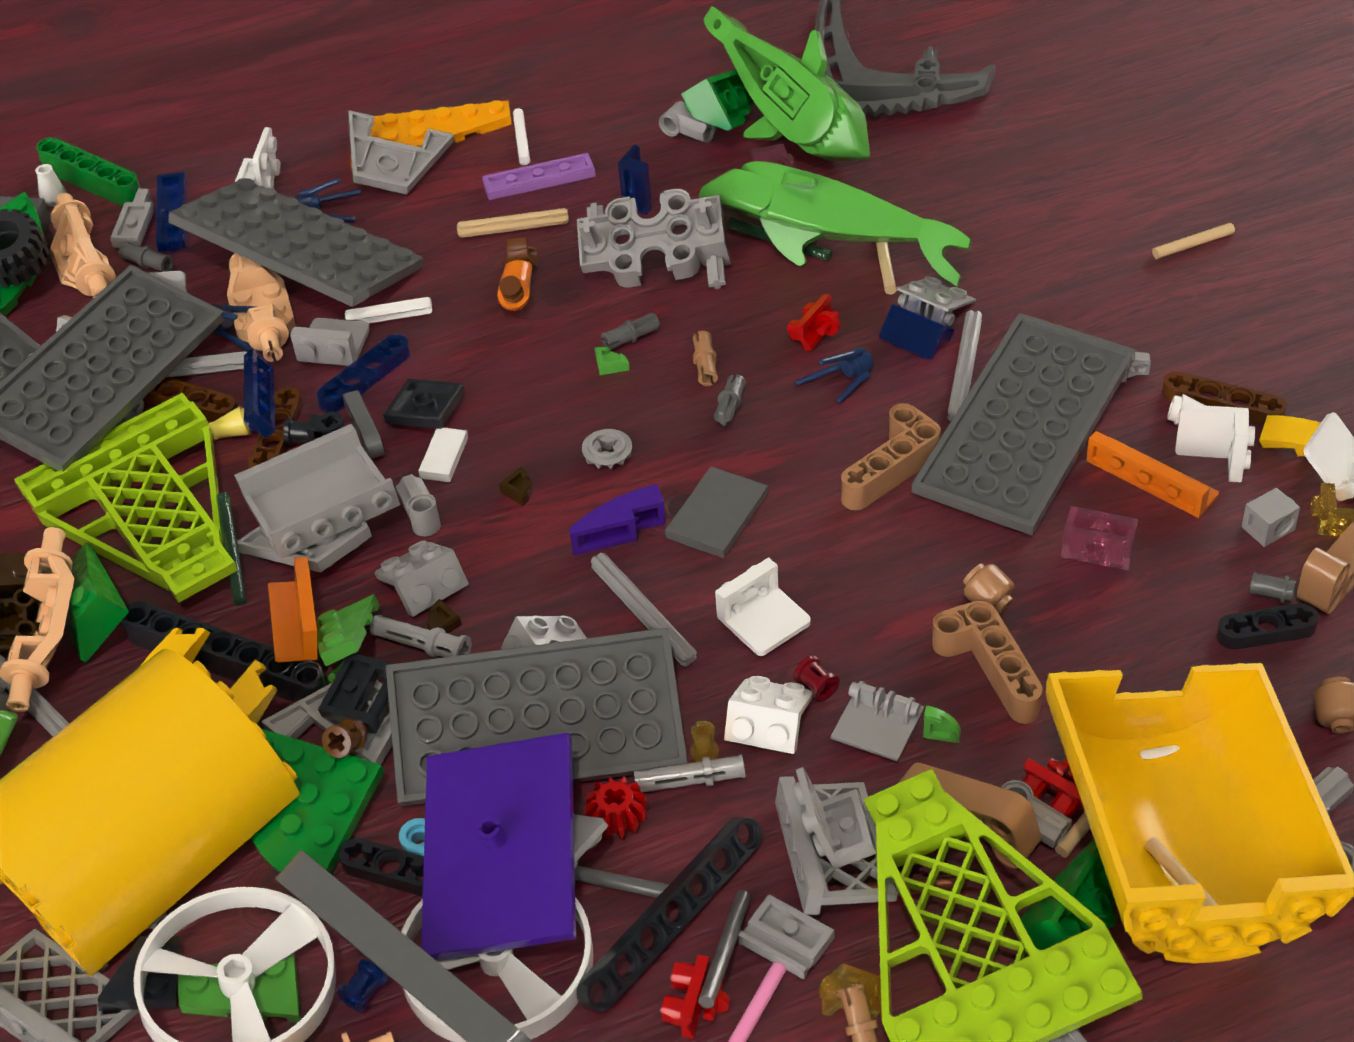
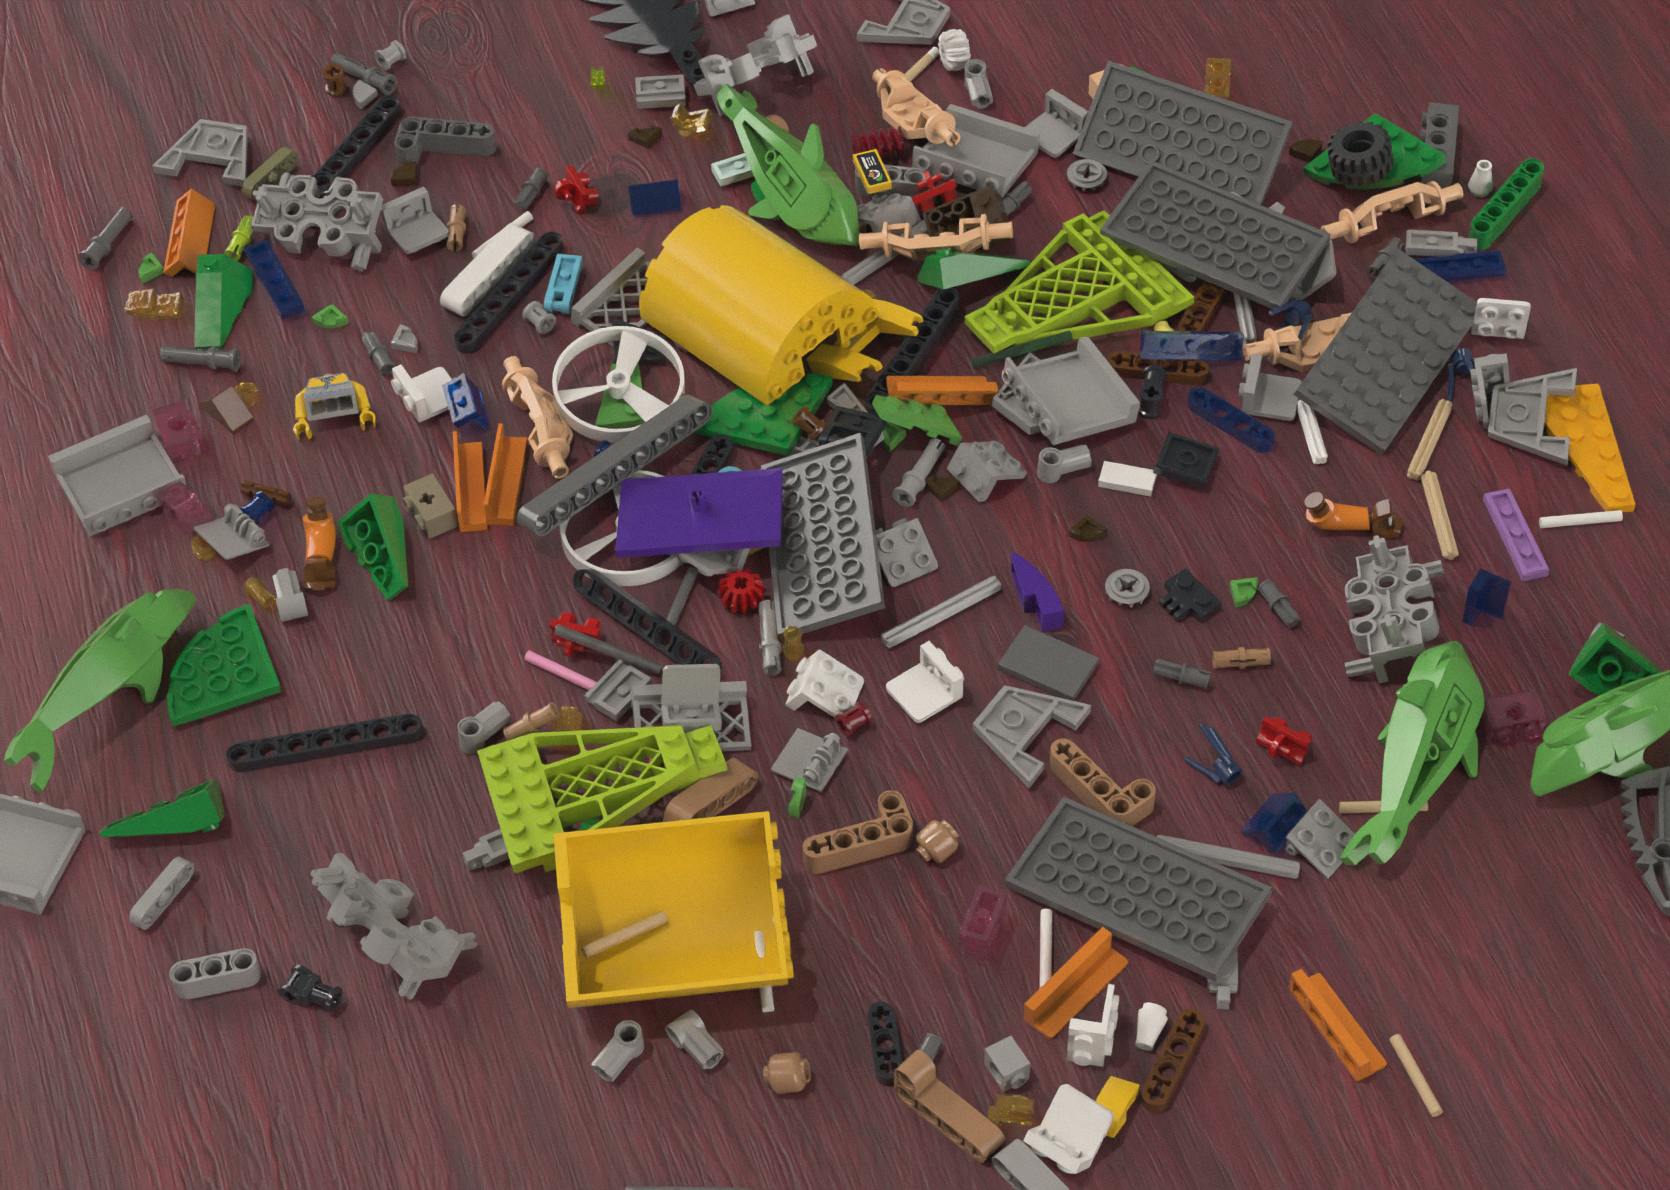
camera: 90 degrees right, 5 degrees up
(362, 177) = (1487, 373): none -> light grey bracket
(363, 424) = (1175, 416): dark grey beam -> none
(409, 229) = (1429, 439): none -> tan axle
(619, 401) = (1188, 597): none -> black hinge
(811, 534) = (1016, 719): none -> light grey wing
(1110, 499) = (1045, 946): none -> white bar
(1154, 289) = (1336, 1024): none -> orange panel

